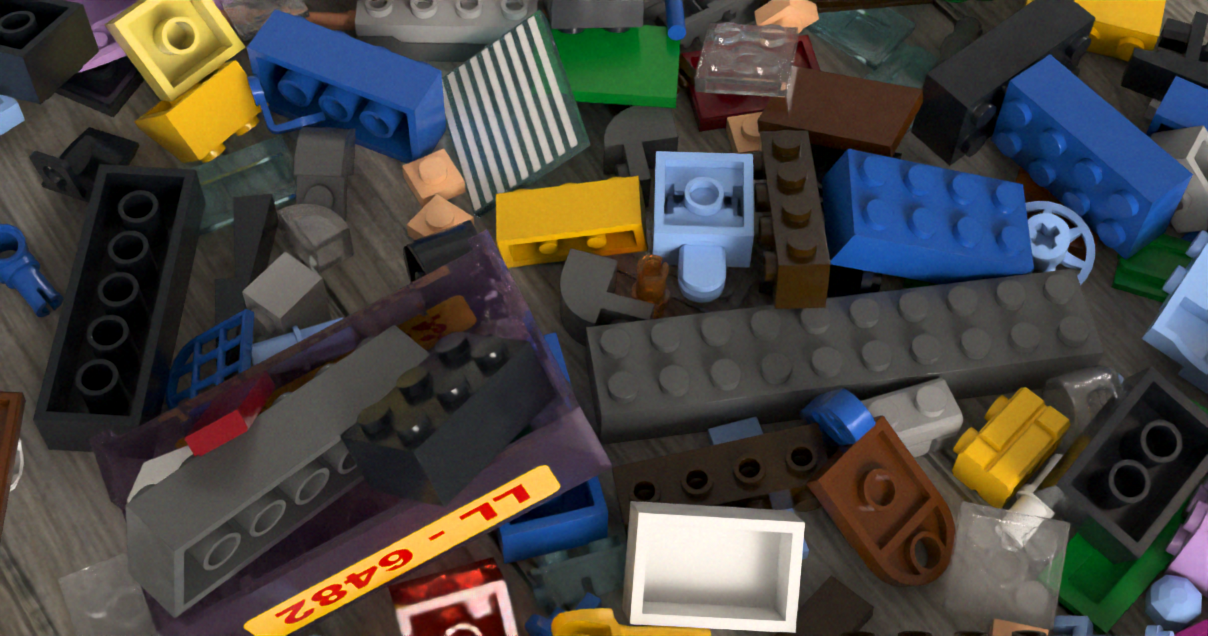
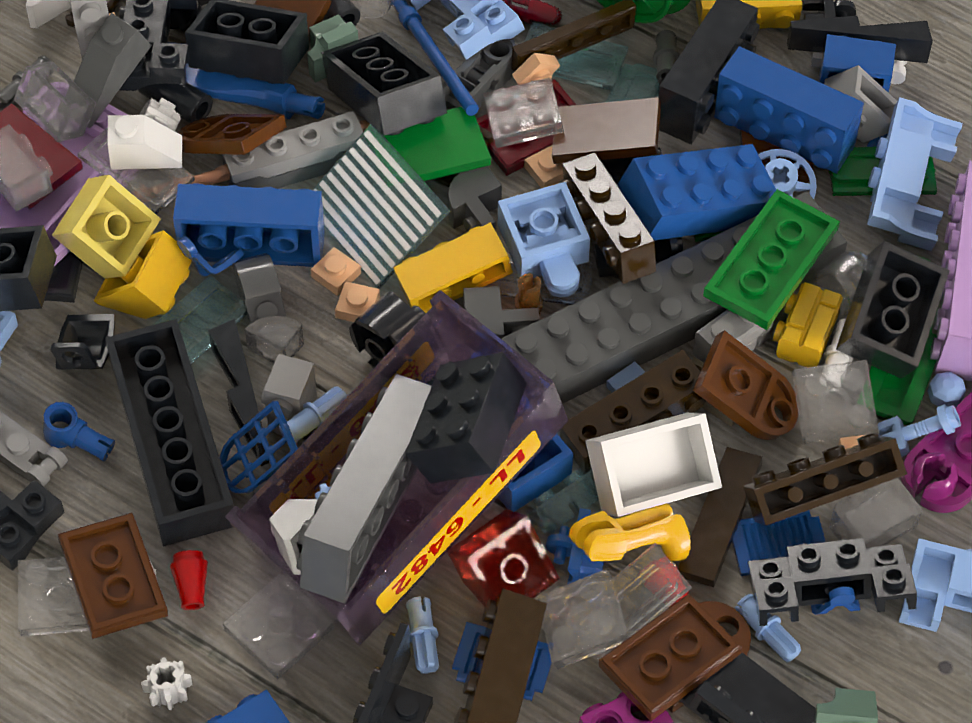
camera: 20 degrees left, 0 degrees up
(54, 502) = (190, 575): none -> red cone
(230, 414) = (329, 461): dark red tile -> none
(839, 416) = (697, 339): blue beam -> none
(986, 341) = (771, 259): none -> green plate

